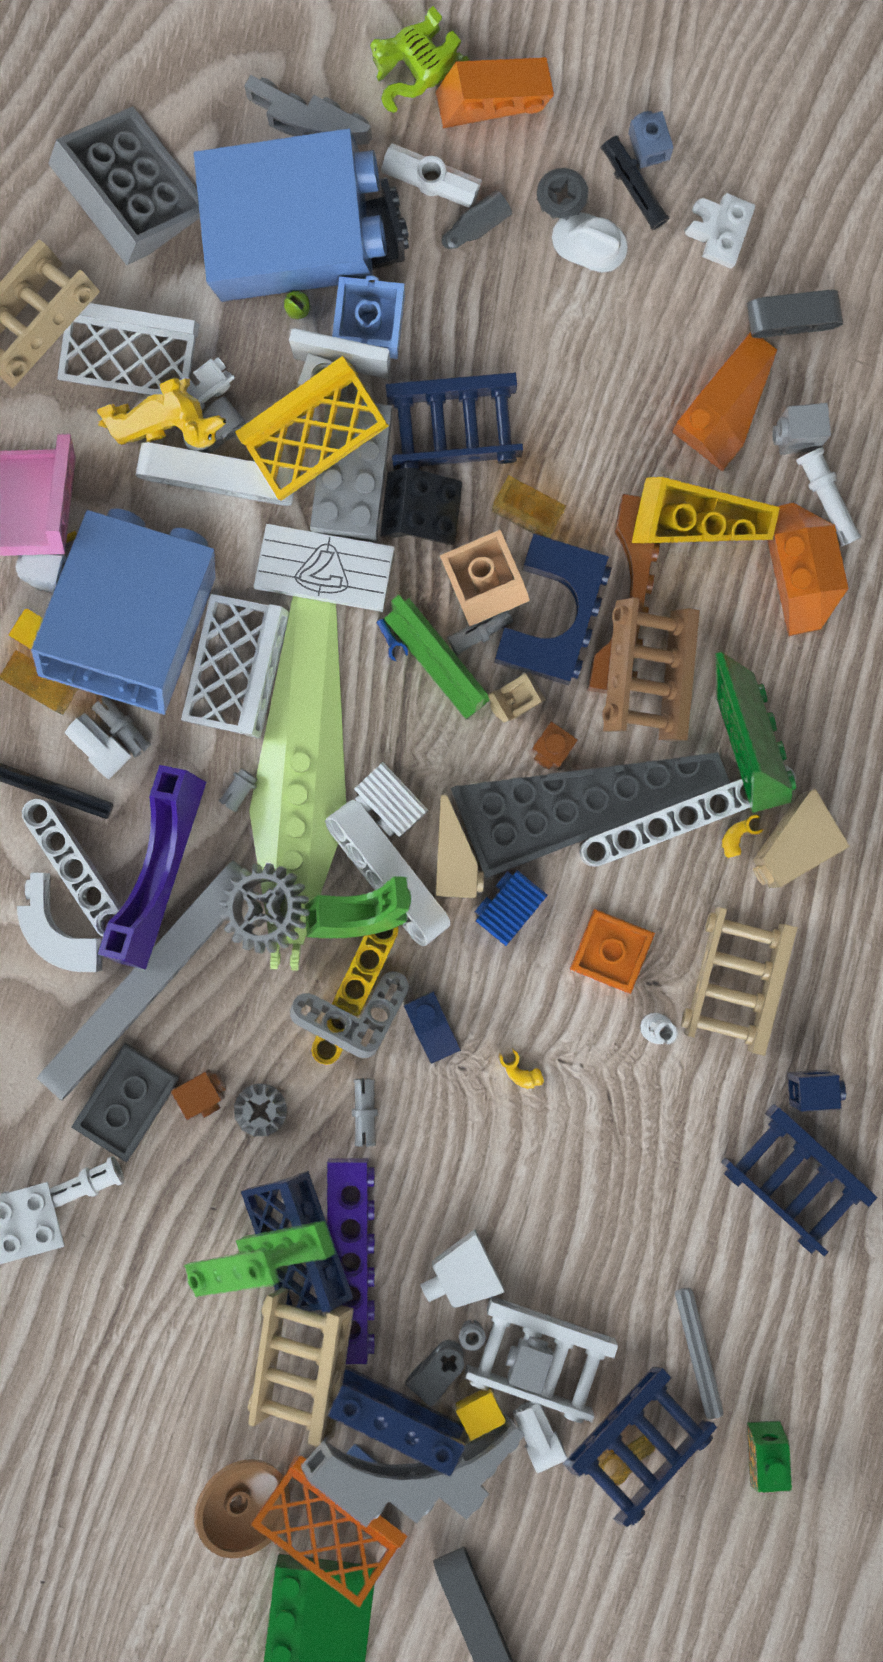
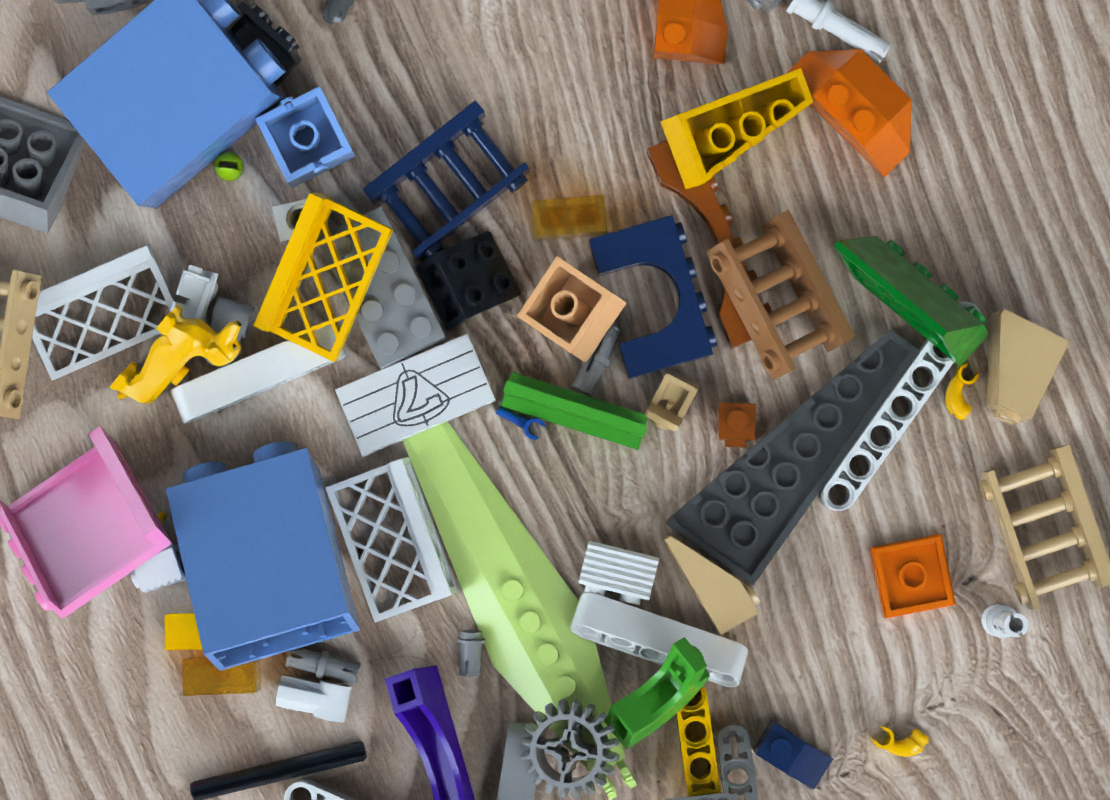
camera: 25 degrees left, 0 degrees up
(364, 357) = (299, 187): white tile -> none
(510, 907) = (792, 597): blue brick -> none

